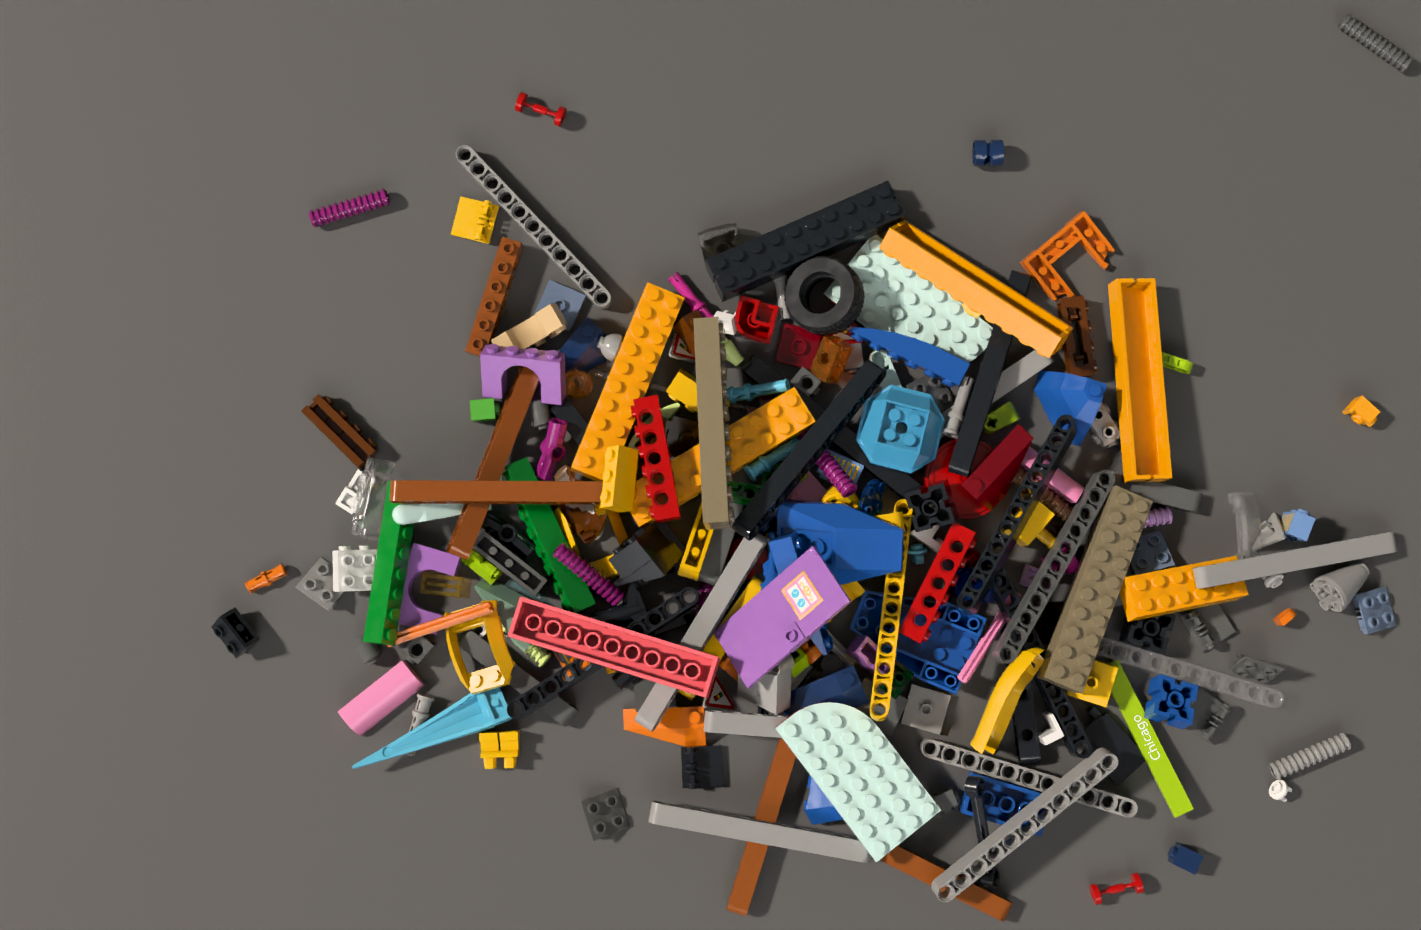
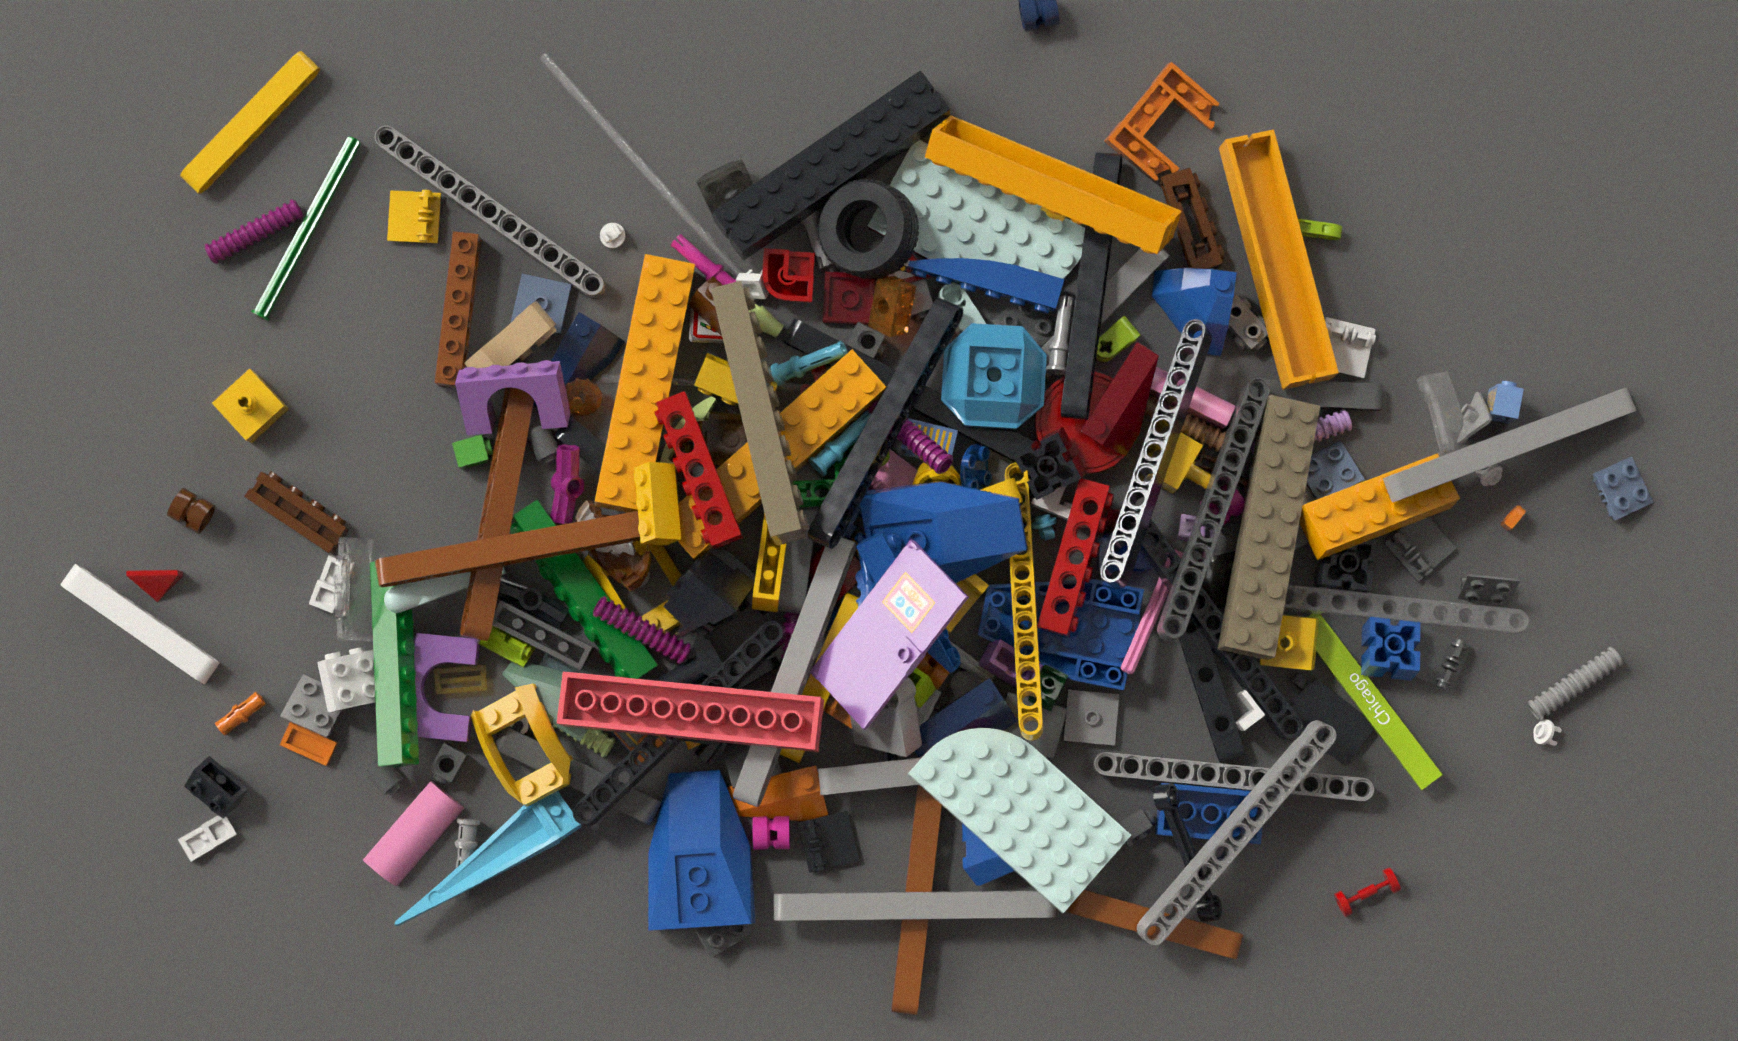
camera: 15 degrees left, 0 degrees up
(202, 494) = (140, 623): none -> white beam
(220, 464) = (155, 582): none -> red slope
(221, 670) = (207, 837): none -> white slope
(261, 416) = (192, 511): none -> reddish brown wheel
(314, 612) = (308, 744): none -> orange tile
(320, 342) = (250, 406): none -> yellow brick
(362, 123) = (250, 122): none -> yellow beam
(390, 213) = (307, 228): none -> axle
(444, 622) = (474, 723): orange axle -> none
(490, 747) = (562, 870): yellow hips -> none
(522, 102) = (444, 59): red wheel -> none
(599, 760) = (699, 857): none -> blue wedge
(610, 345) = (614, 341): light grey brick -> none
(625, 263) = (612, 235): none -> white plate
(651, 753) = (761, 833): none -> dark pink wheel
(657, 213) = (639, 163): none -> clear piece
(719, 698) = (831, 751): piece -> none
(1004, 700) = (1183, 685): yellow animal -> none
(1183, 458) = (1350, 346): none -> white hinge
(1185, 858) = (1444, 838): dark blue brick -> none
(1340, 586) = (1573, 466): light grey cone -> none
(1362, 411) = (1562, 246): light orange brick -> none

